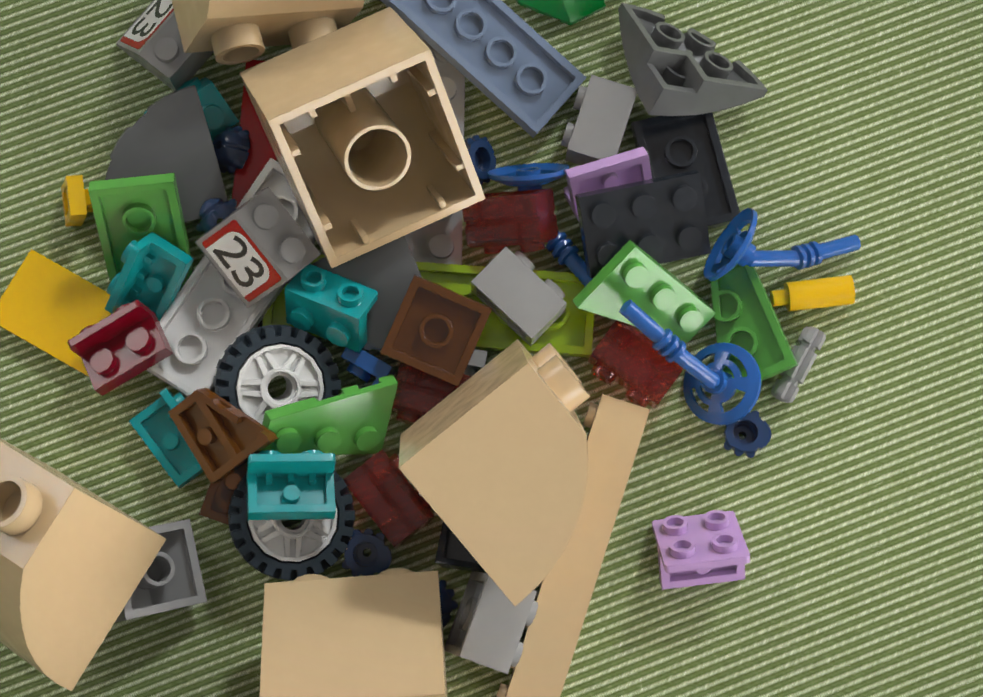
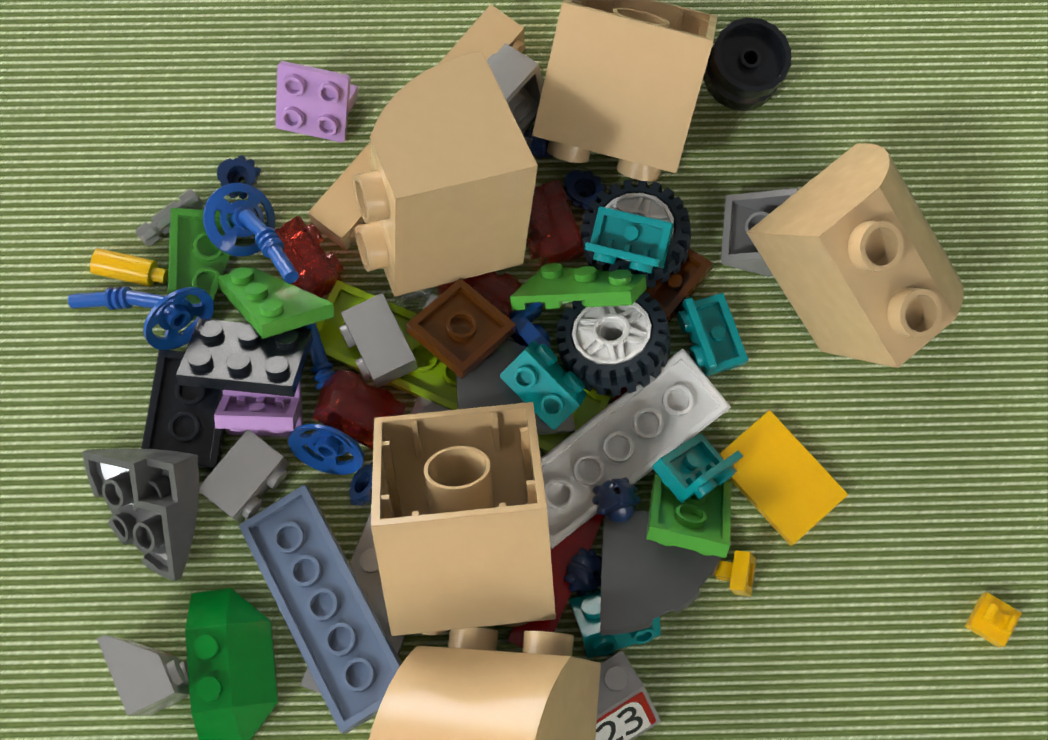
camera: 160 degrees left, 5 degrees down
(121, 346) = (737, 417): dark red bracket -> none
(218, 433) = (676, 304): reddish brown wing -> none
(257, 247) = (591, 453): slope -> none

